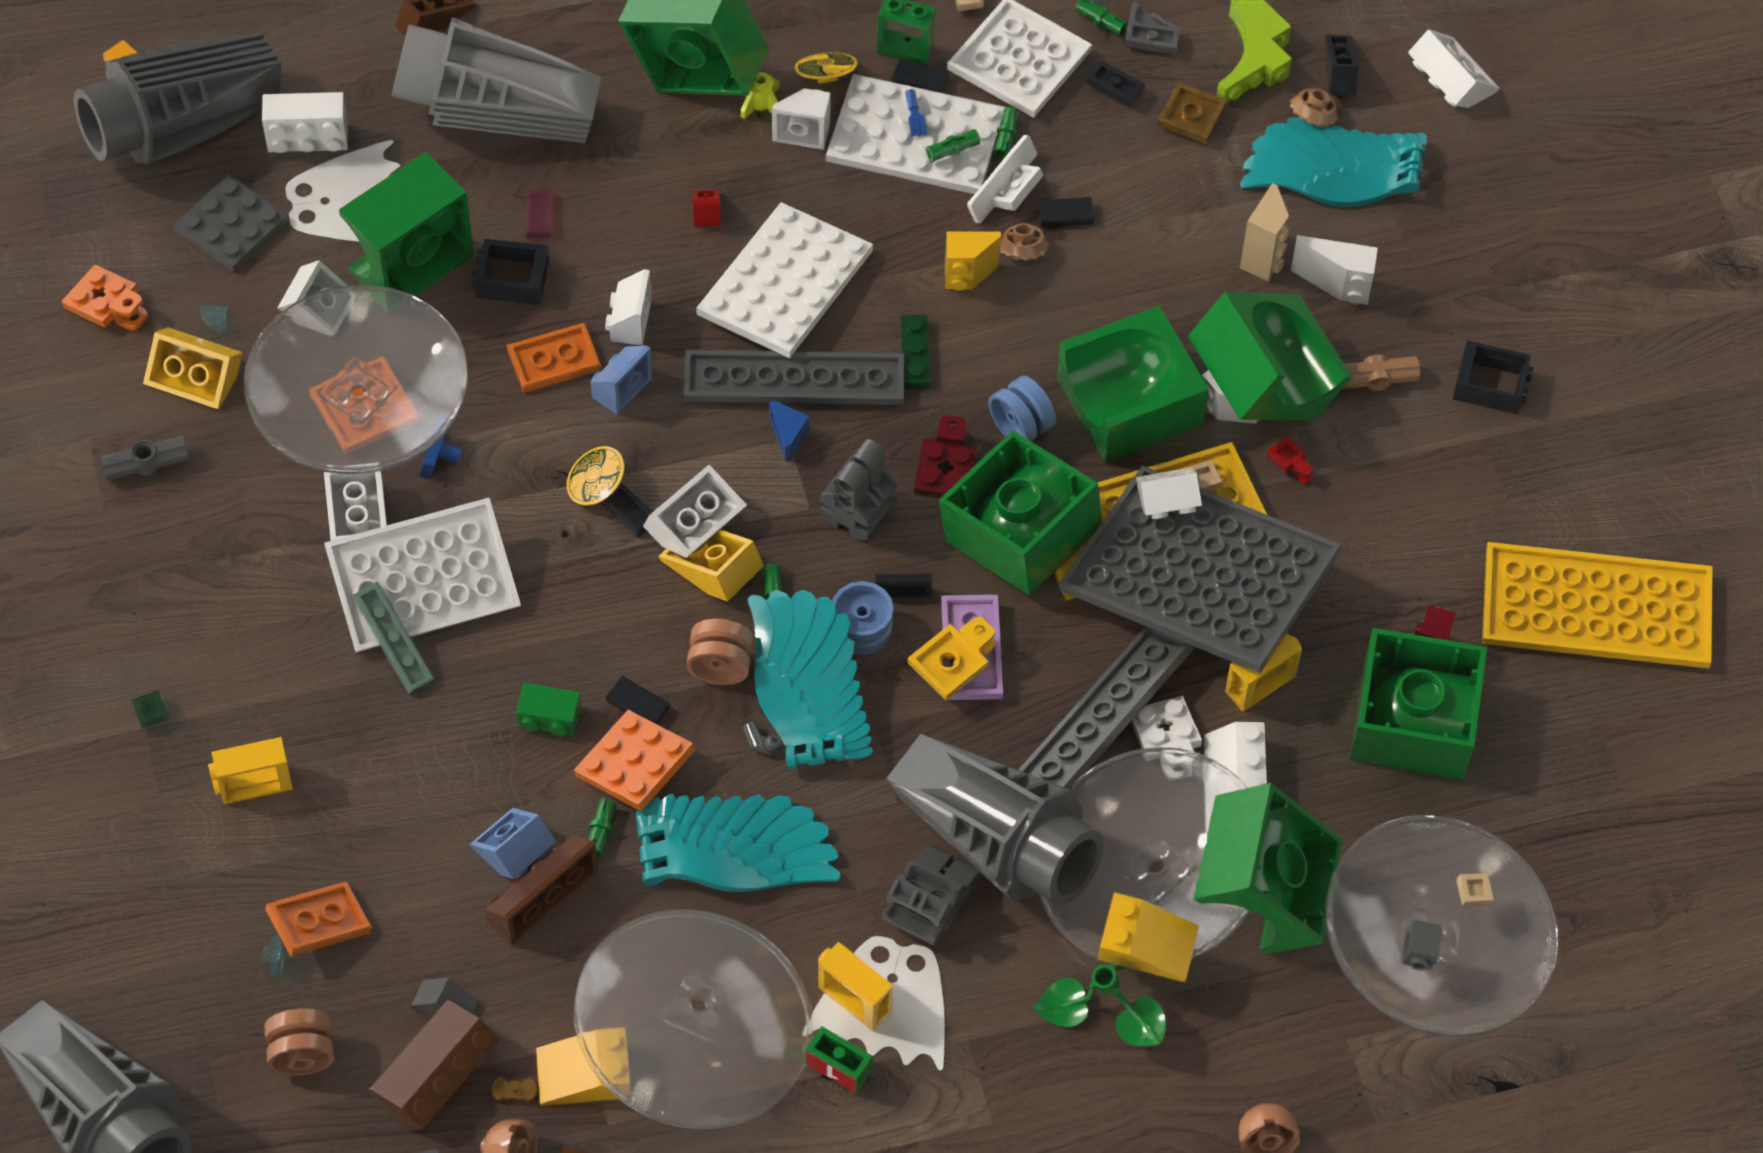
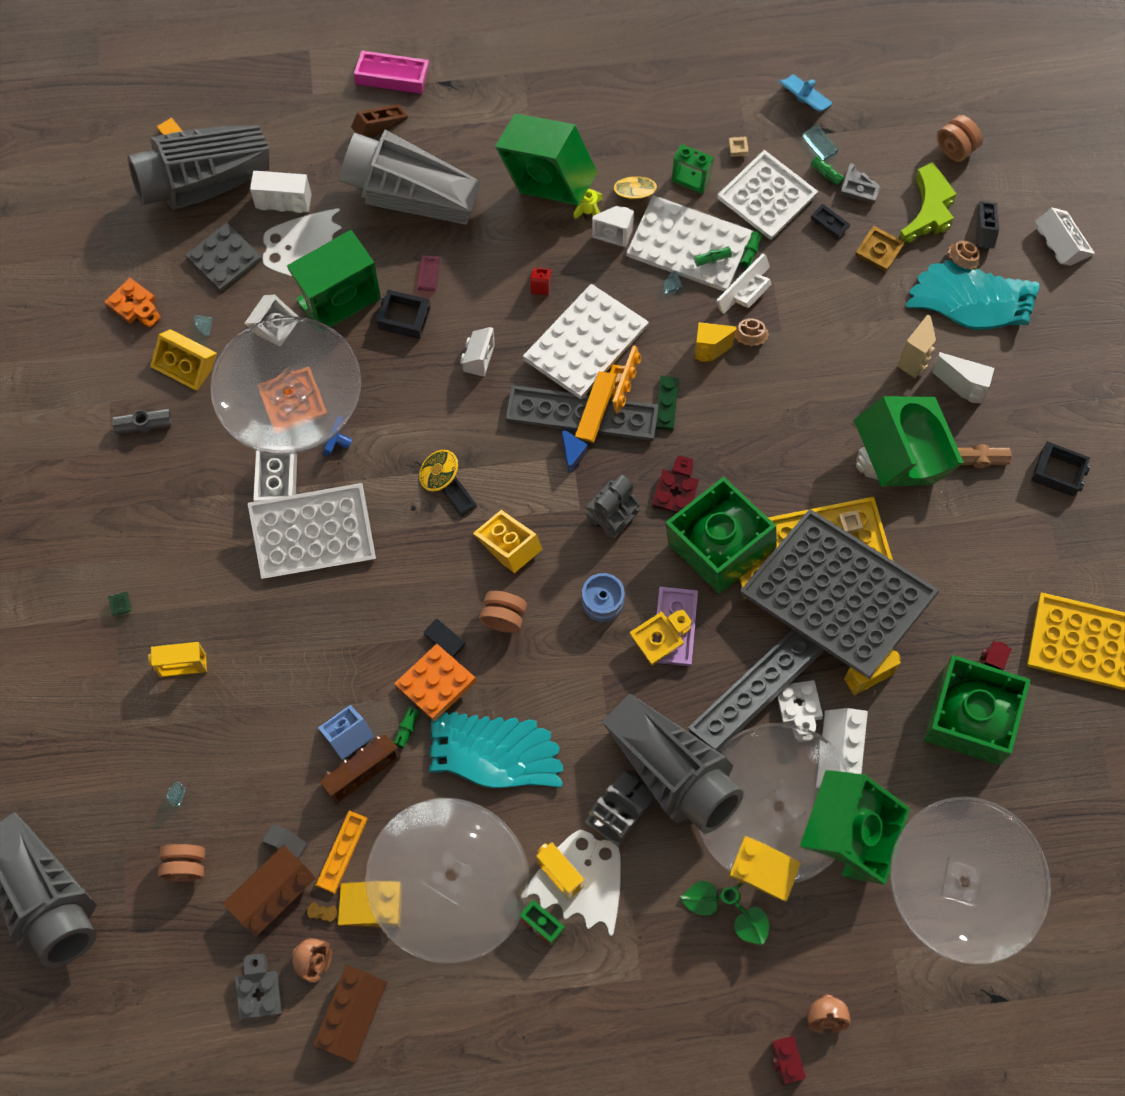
camera: 10 degrees right, 10 degrees up
(318, 918) = (208, 772): orange tile -> none
(393, 638) = (286, 573): sand green tile -> none
(530, 1006) = (341, 852): none -> light orange tile
(548, 709) = (383, 637): green brick -> none
(554, 357) = (423, 379): orange tile -> none
(622, 378) = (466, 401): medium blue slope -> none
(694, 513) = (501, 507): white slope -> none
(766, 745) = (521, 678): dark grey arm -> none
(772, 578) = (547, 561): green piece -> none
(808, 678) = (560, 638): teal animal -> none
(813, 363) = (596, 406): none -> light orange tile
(843, 325) = (624, 378): none -> light orange bracket
(899, 190) = (672, 283): none -> clear light blue tile
(905, 584) = (635, 575): black tile -> none
(916, 120) = (690, 234): blue piece -> none
(920, 76) = (698, 201): black tile -> none
(1022, 409) = (733, 458): medium blue wheel -> none
(1066, 212) = (783, 312): black tile -> none
(1132, 384) = (811, 447): green piece -> none
(1169, 492) = (825, 533): white slope -> none
(1288, 457) = (911, 511): red plate -> none
(1421, 944) = (954, 897): dark grey brick -> none
(1475, 889) = (997, 858): tan plate -> none

